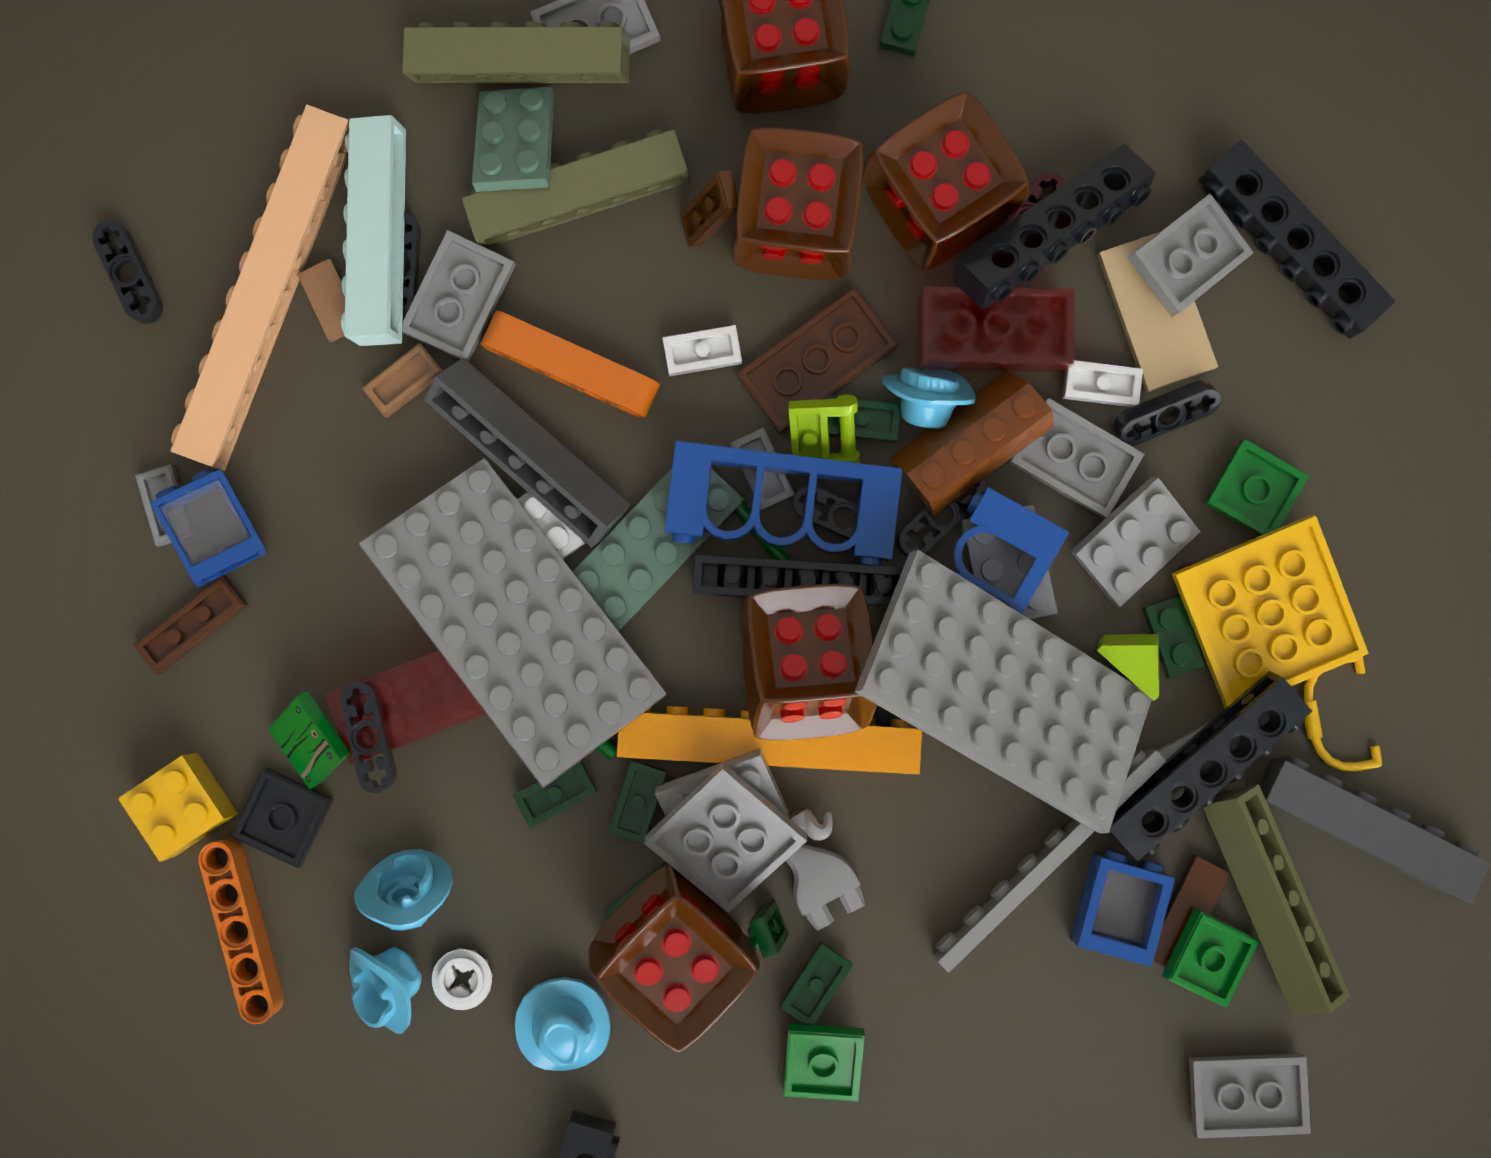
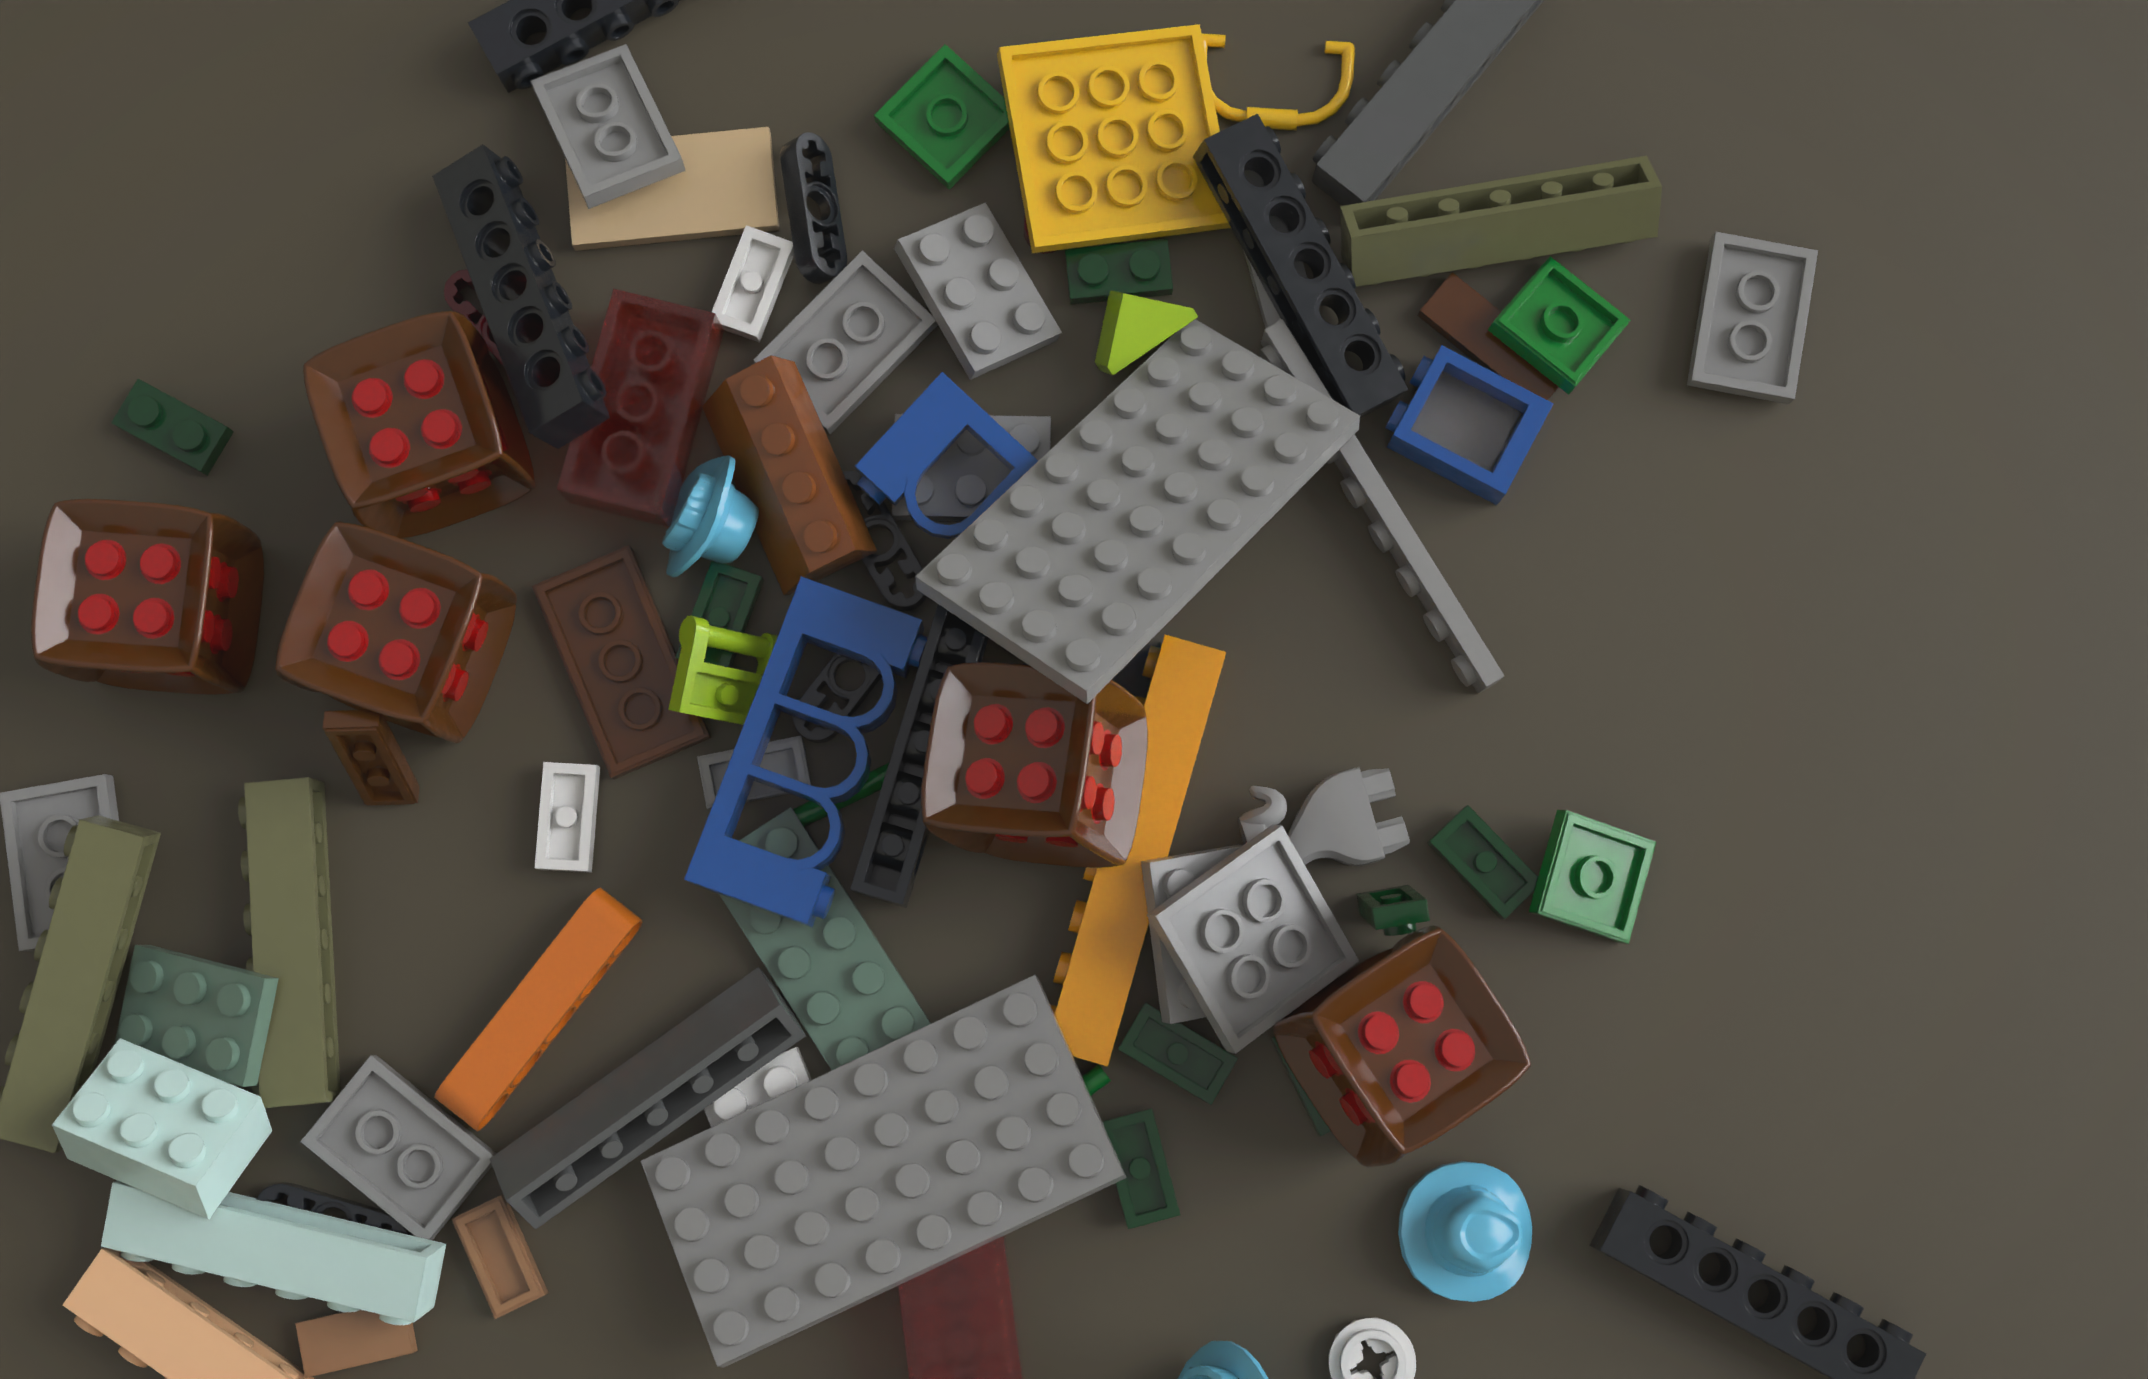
camera: 75 degrees left, 5 degrees down
(433, 138) = (163, 1128): none -> light aqua brick

